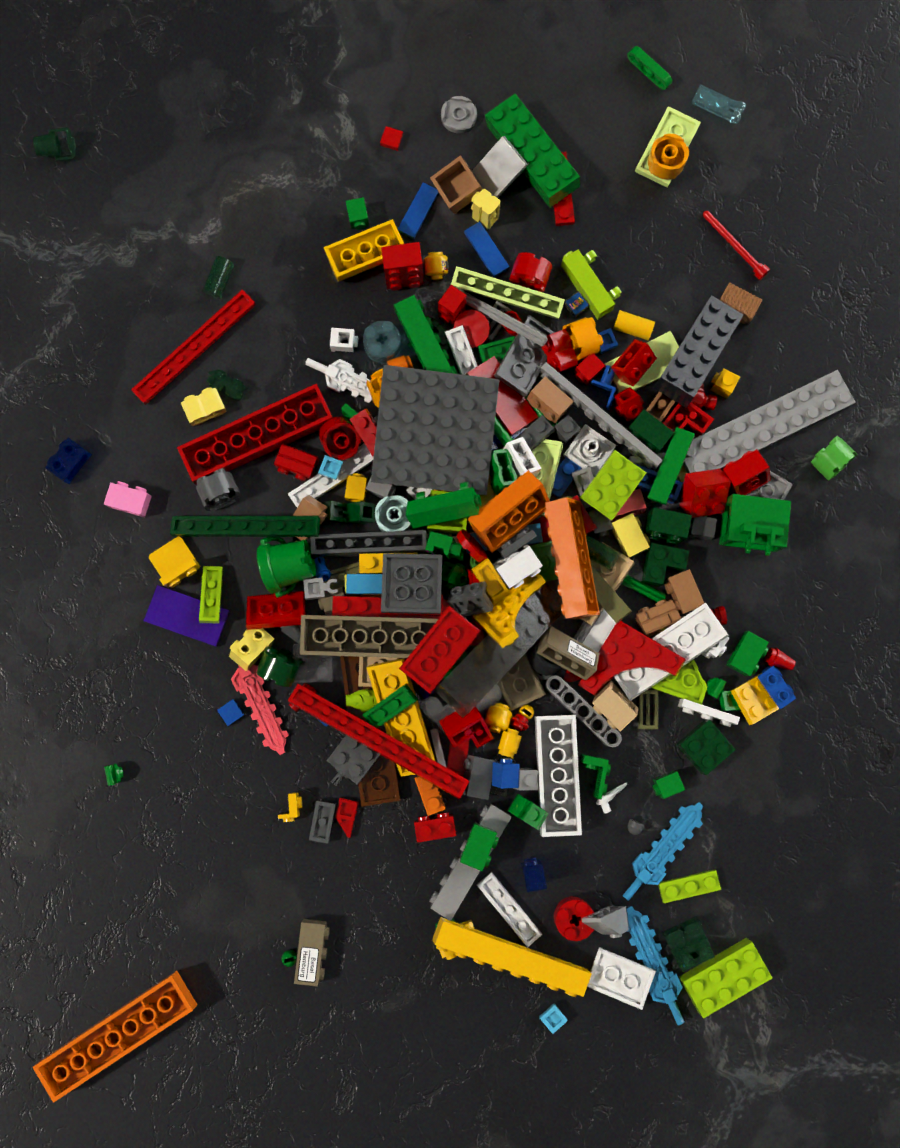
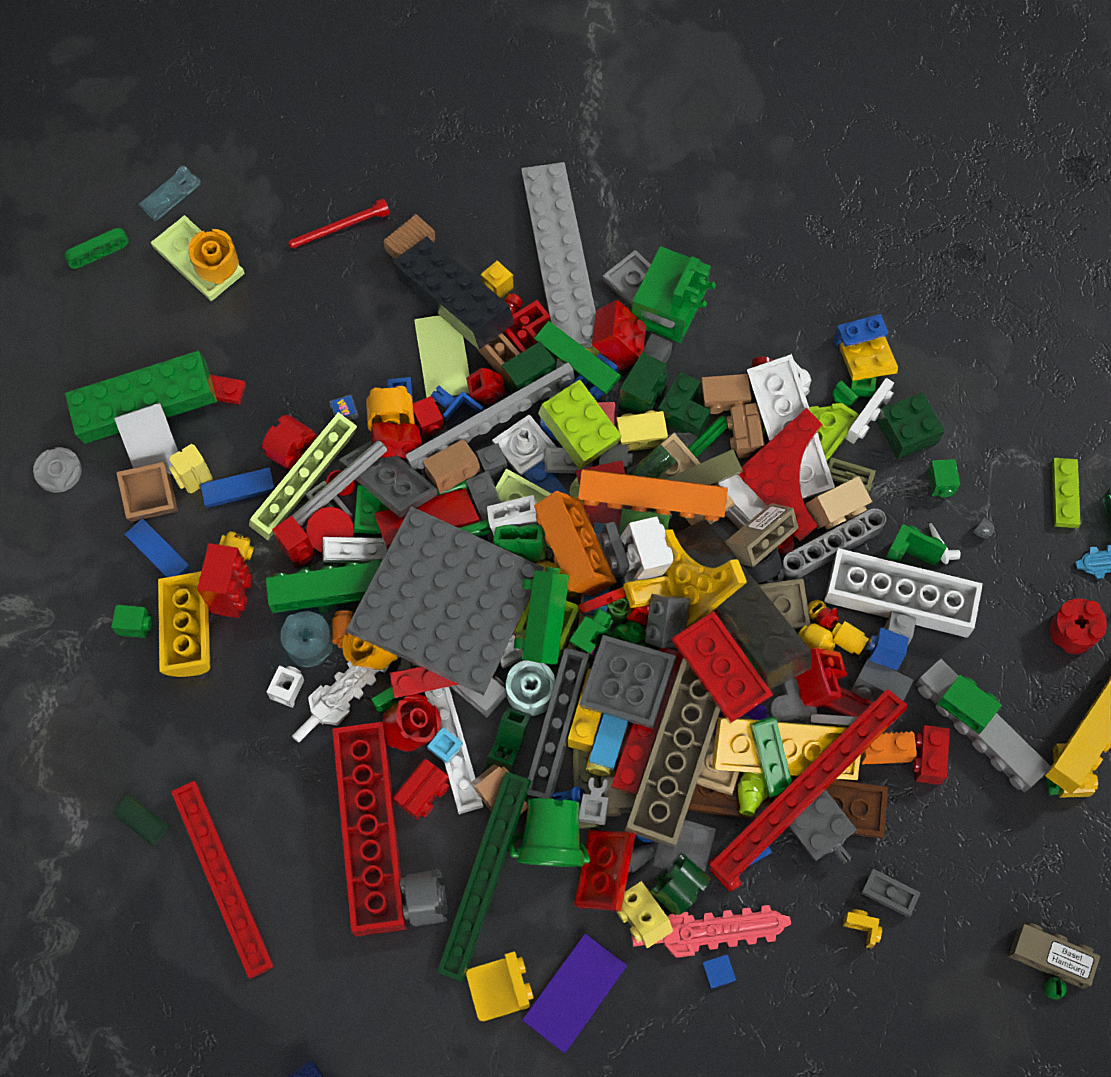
camera: 70 degrees left, 15 degrees down
(127, 499) = (394, 1025): bright pink brick -> none
(203, 407) = (306, 887): light yellow brick -> none
(211, 594) = (558, 949): lime plate -> none
(233, 386) = (279, 856): clear green hinge -> none
(346, 814) = (889, 861): red tile -> none
(356, 488) = (480, 725): yellow brick -> none
(391, 138) = (52, 555): red tile -> none
(509, 909) = (1050, 700): white tile -> none
(528, 811) = (939, 636): green brick -> none
(533, 874) = (1016, 654): clear blue brick -> none
(588, 284) = (324, 387): lime brick -> none
(608, 921) = (1090, 584): light grey slope -> none
(634, 325) = (393, 355): yellow brick -> none
(634, 362) = (440, 363): red brick -> none
(650, 866) = (1033, 526): dark azure bar -> none
(747, 473) = (610, 282): red brick -> none
(748, 653) = (814, 351): green brick -> none
(779, 659) = (827, 324): red cone -> none
(833, 458) = (621, 198): bright green brick -> none

